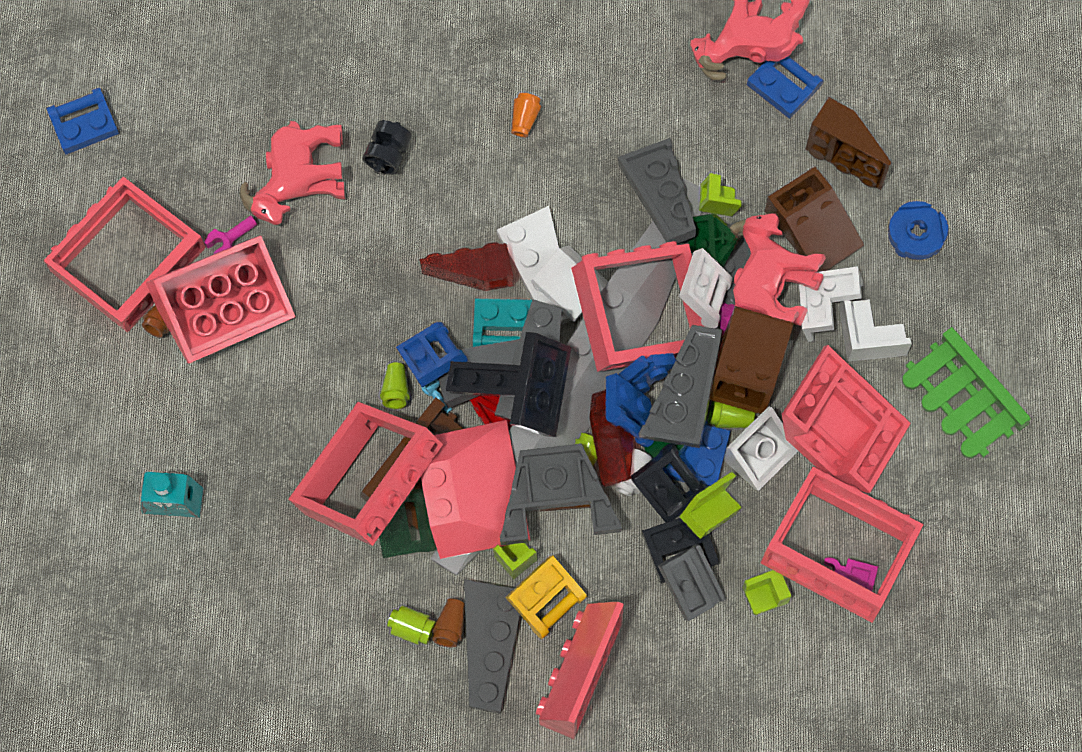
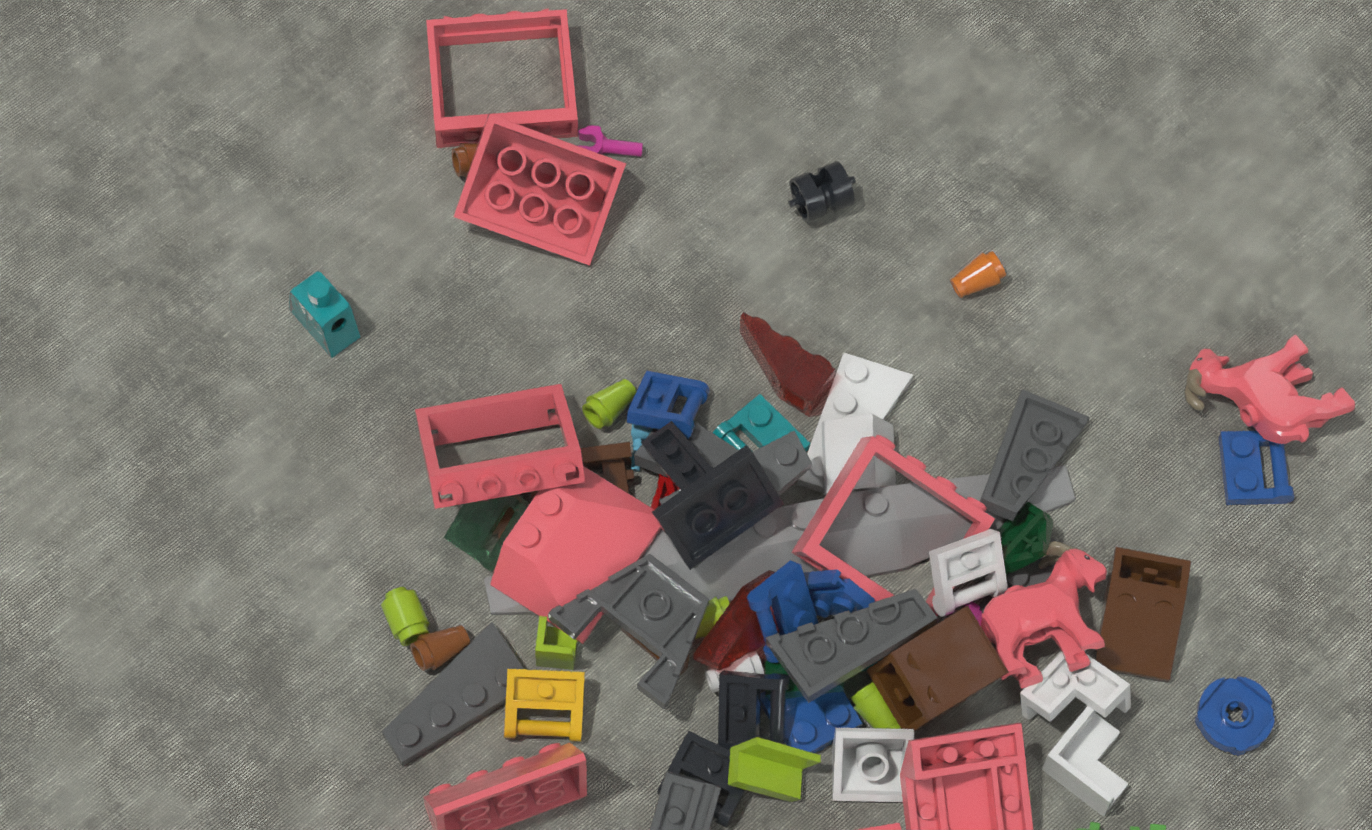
camera: 40 degrees right, 5 degrees down
(294, 171) = (720, 137): coral animal -> none
(717, 198) = (1076, 510): lime panel -> none
(847, 144) = (1245, 559): reddish brown slope -> none

